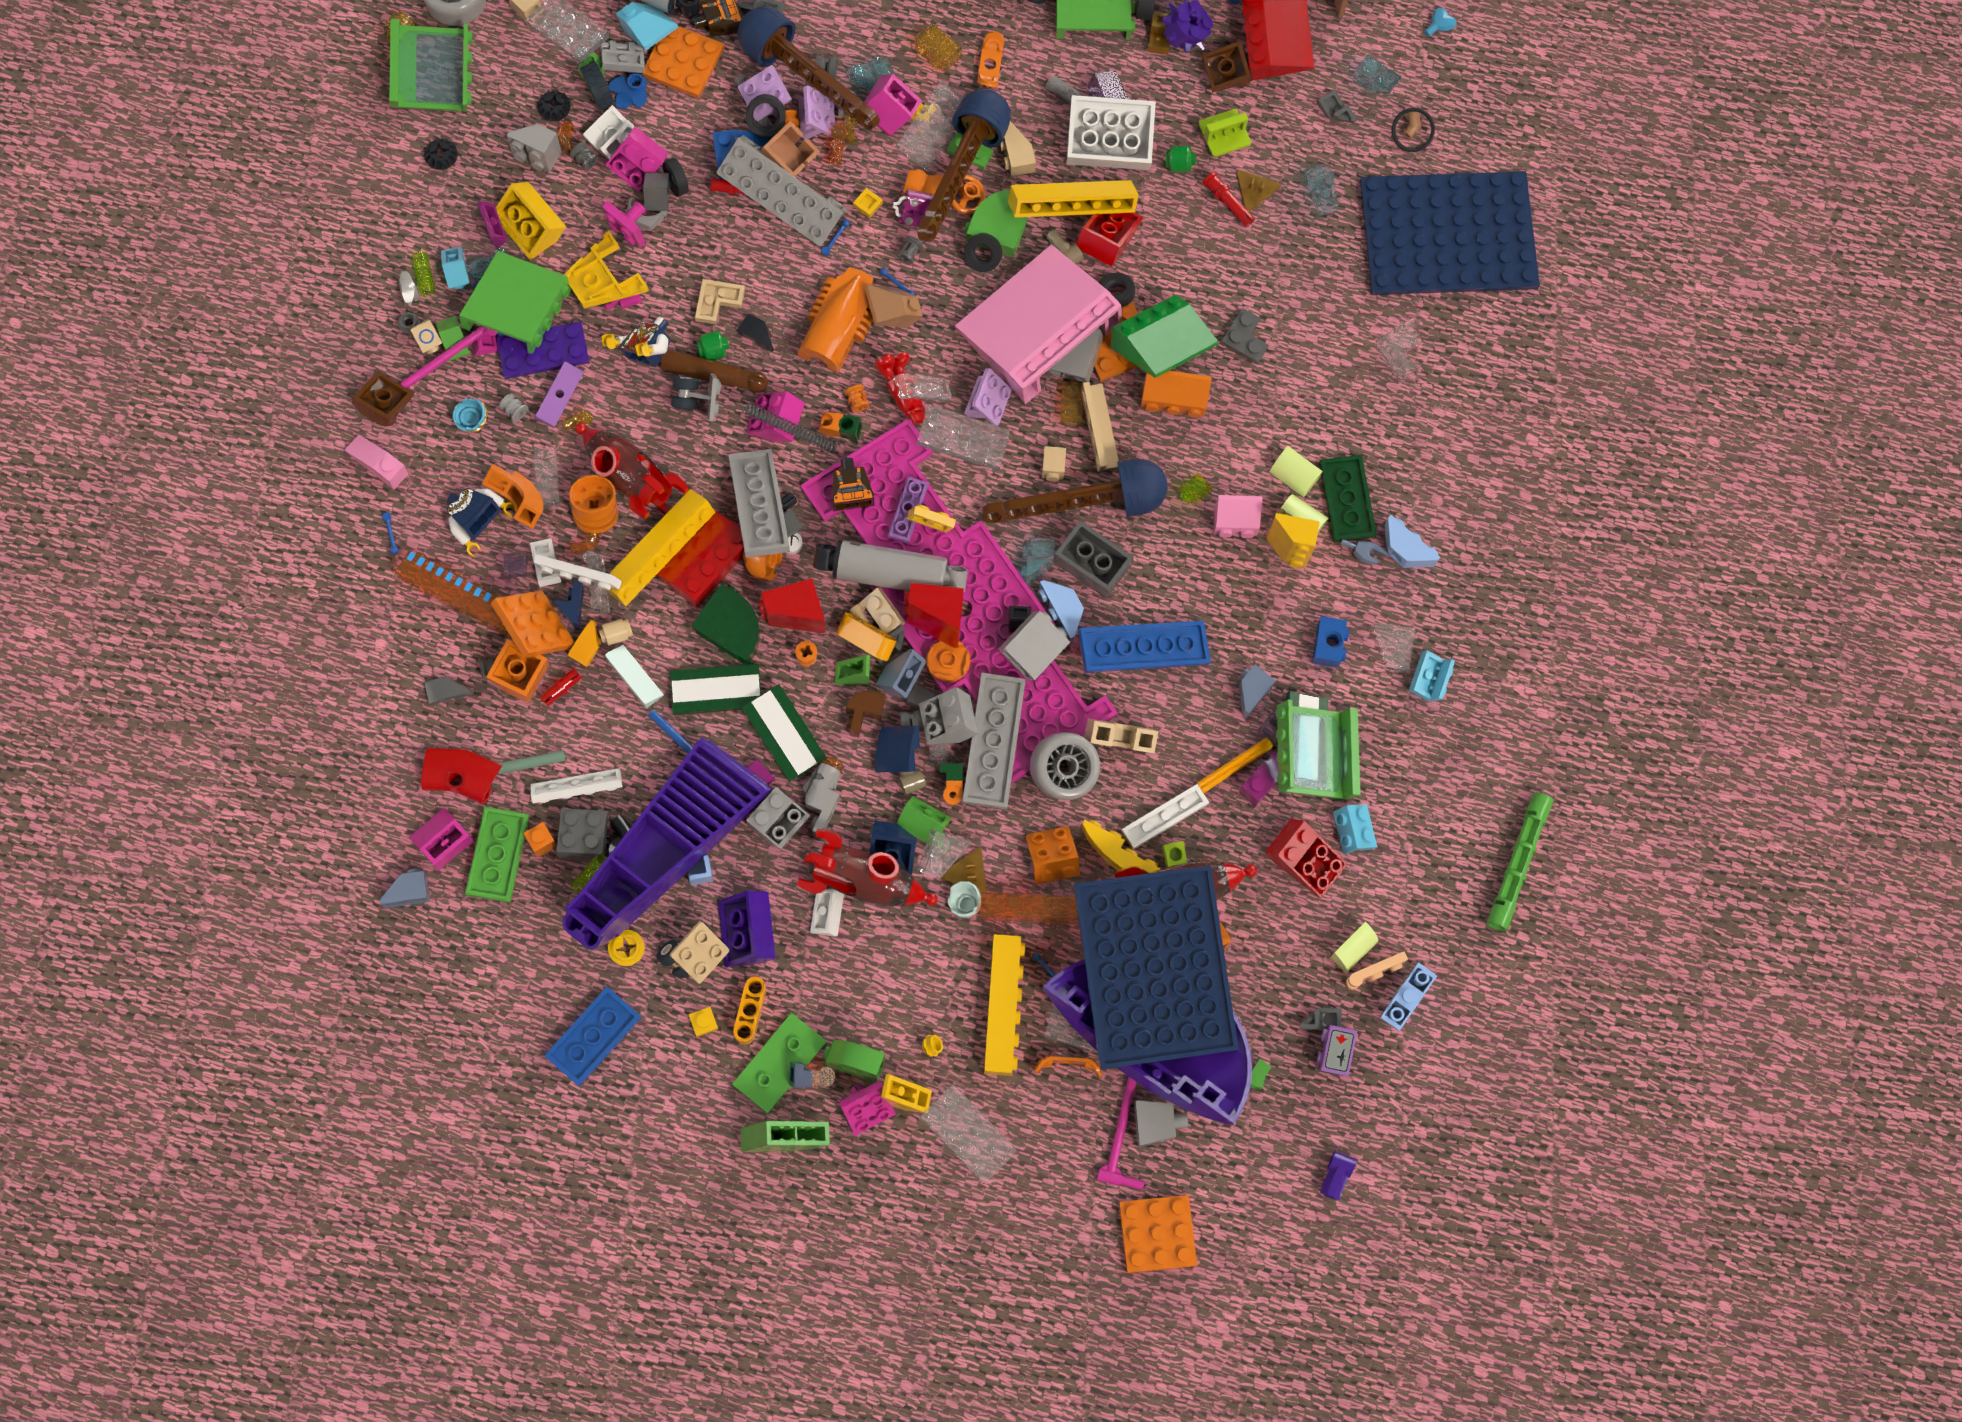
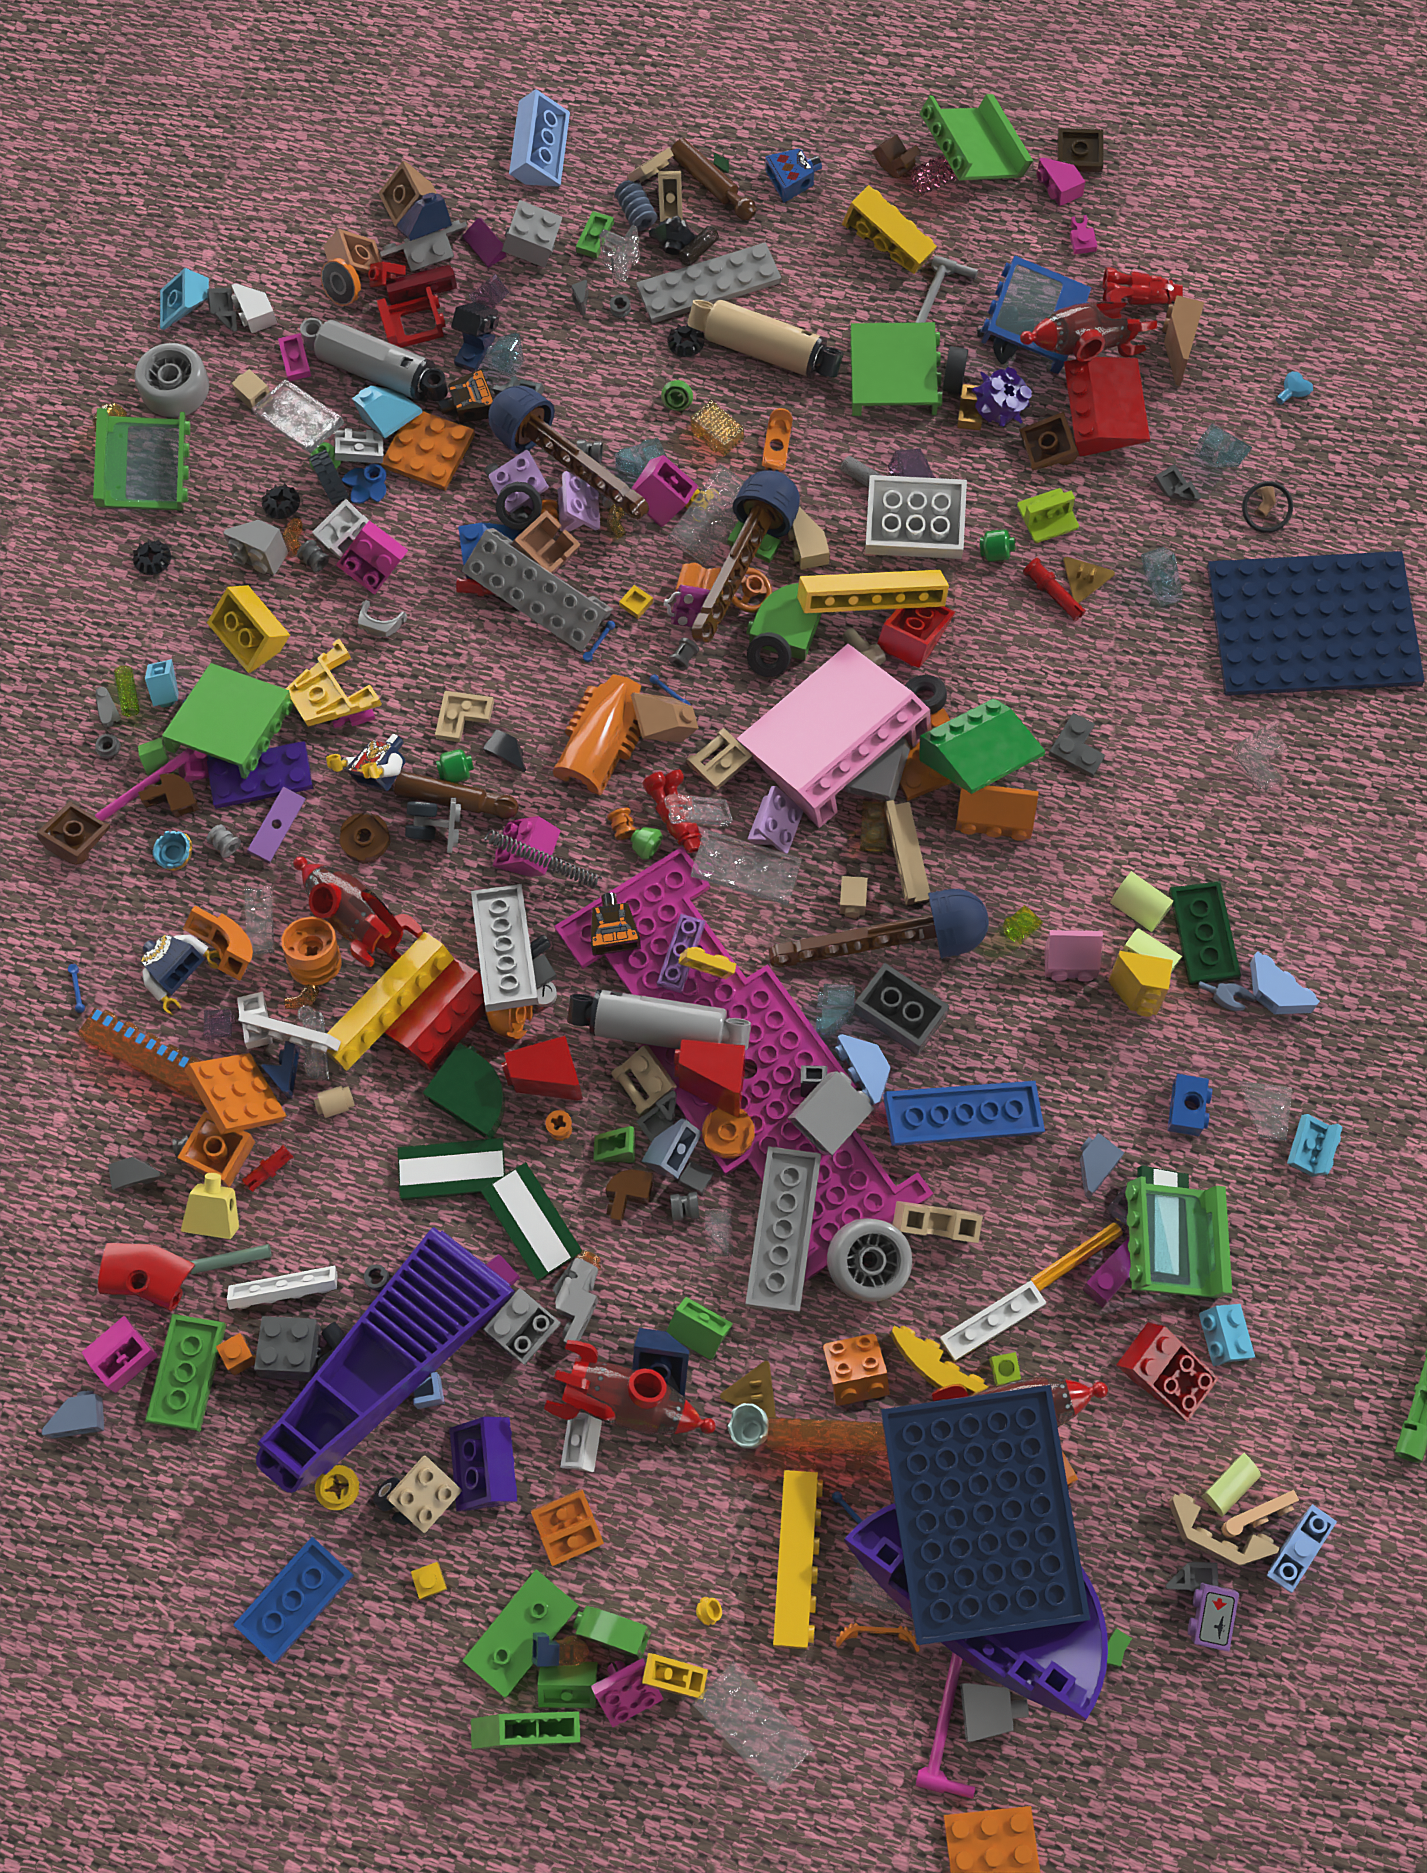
camera: 10 degrees right, 5 degrees down
(377, 461) = (64, 905): bright pink slope -> none
(426, 337) = (125, 761): tan brick -> none
(470, 362) = (175, 791): none -> reddish brown brick
(479, 266) = (189, 680): clear light blue plate -> none
(492, 223) = (206, 633): magenta slope -> none
(515, 720) = (211, 1209): none -> light yellow torso
(583, 416) = (303, 849): clear yellow arm -> none
(585, 873) = (291, 1394): clear neon green piece -> none
(586, 645) = (299, 1117): light orange slope -> none
(626, 222) = (358, 628): dark pink plate -> none
(634, 676) = (355, 1154): light aqua slope -> none
(636, 395) = (364, 851): none -> reddish brown plate
(648, 780) = (368, 1280): none -> dark grey bush
(656, 191) = (393, 593): dark grey piece -> none
(670, 731) = (396, 1219): blue bar -> none
(677, 177) = (415, 576): black tyre -> none
(749, 999) = (481, 1553): light orange beam -> none
(816, 979) = (567, 1527): none -> orange slope
(818, 1103) = (567, 1686): none -> bright green panel
(839, 133) = (602, 524): clear orange pin -> none
(841, 426) = (603, 856): leg -> none
(866, 636) = (630, 1104): light orange beam -> none
(878, 414) = (646, 842): none -> bright green cone
(896, 749) = (665, 1240): dark blue slope -> none
(903, 17) = (677, 395): none -> bright green cone
(911, 781) = (682, 1273): dark tan pin -> none
(941, 853) = (720, 1368): clear wing -> none
(944, 348) = (724, 764): none -> tan plate
(948, 717) = (728, 1201): light grey slope -> none
(953, 782) = (735, 1278): leg -> none
(1316, 970) = (1185, 1514): none -> tan slope
(1339, 1170) = (1222, 1772): dark purple piece -> none

